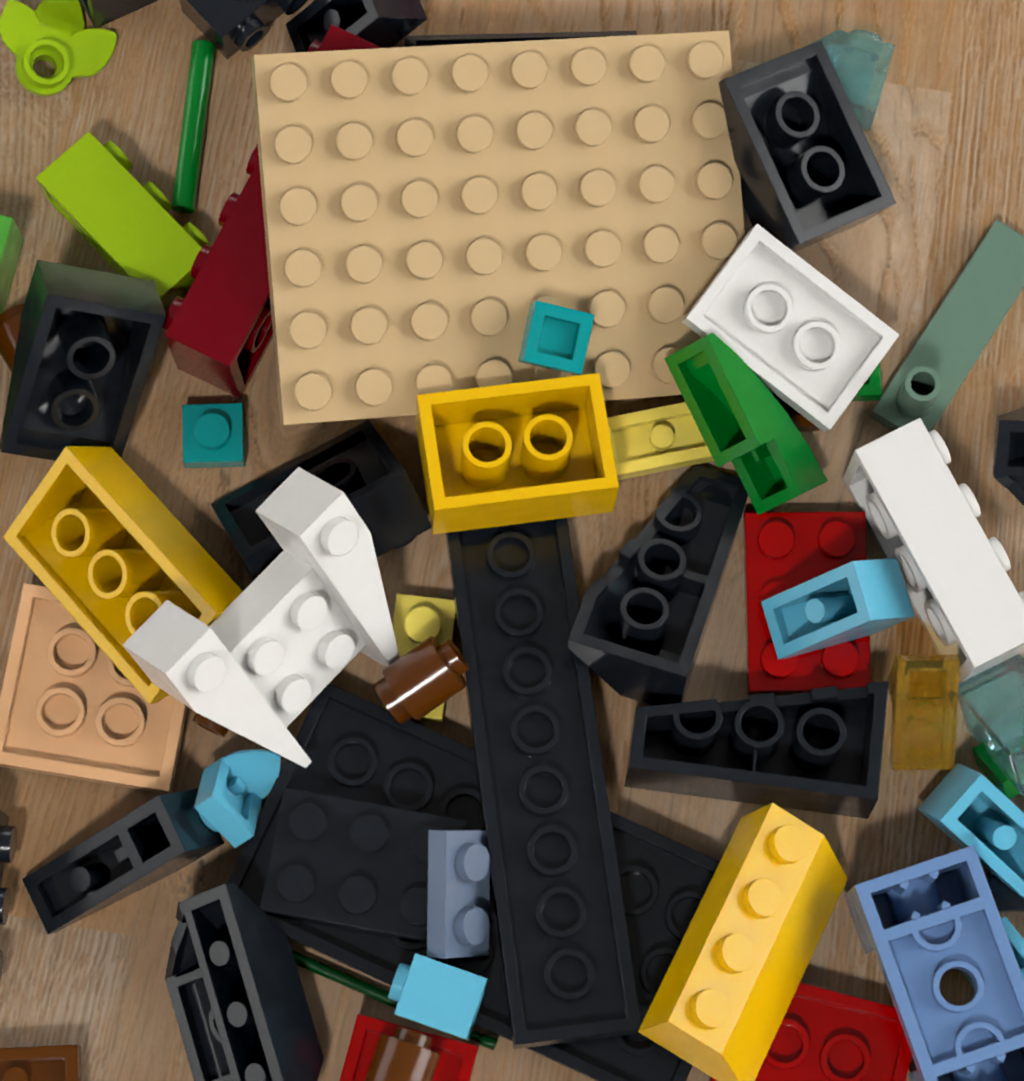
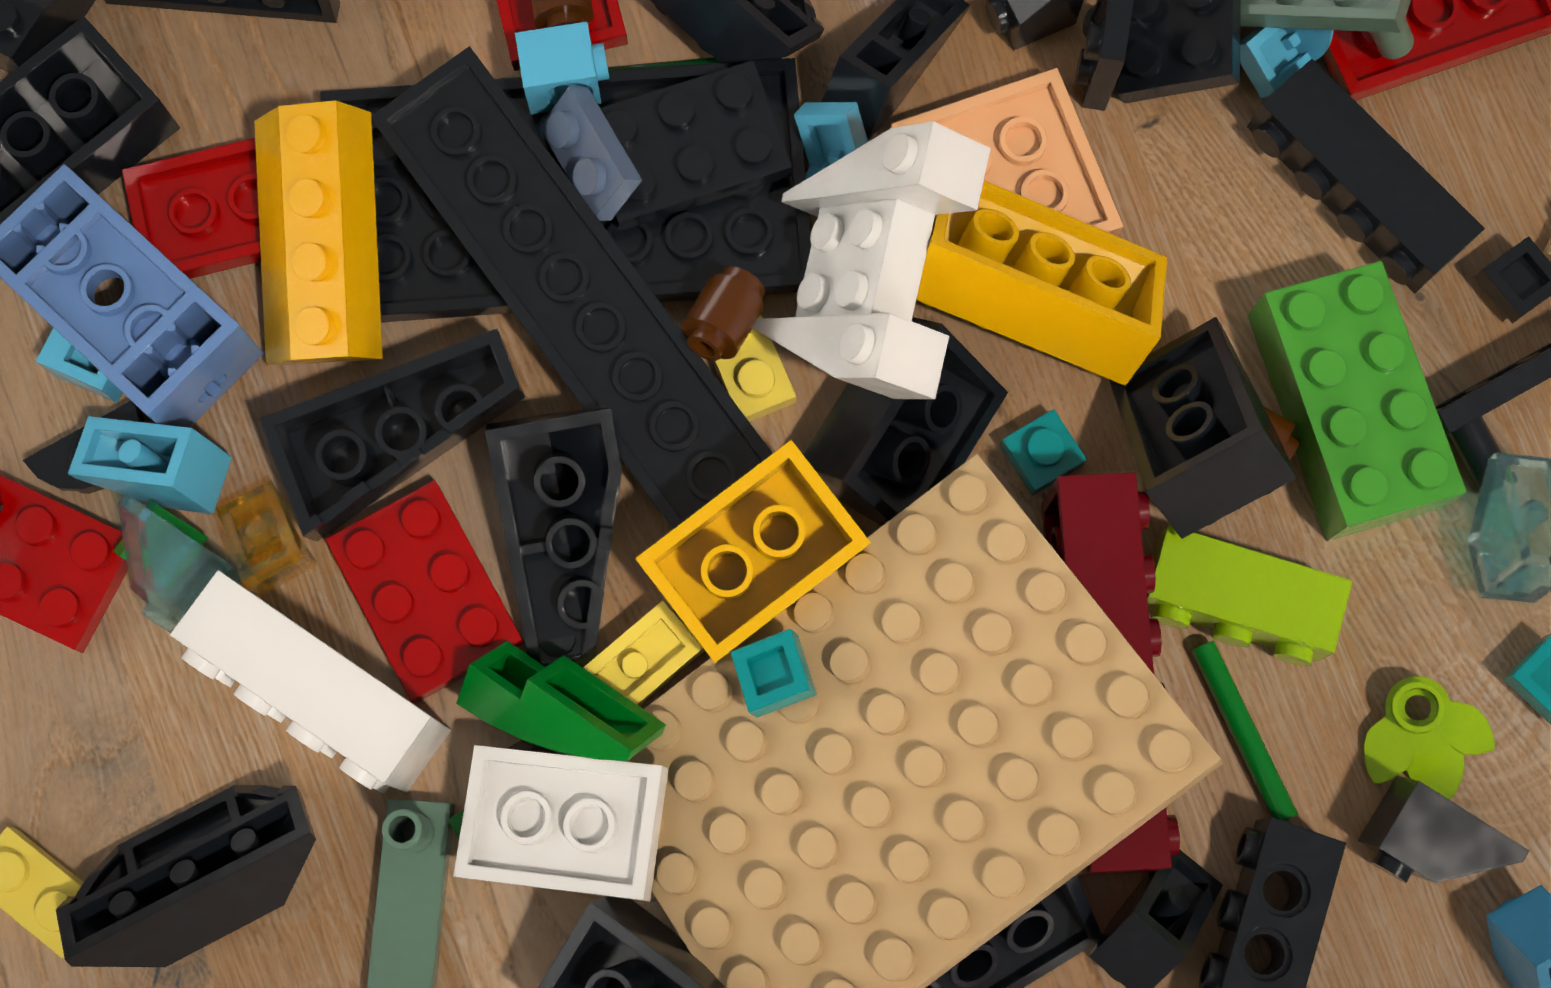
camera: 150 degrees right, 0 degrees up
(838, 607) = (381, 580): medium azure slope -> none

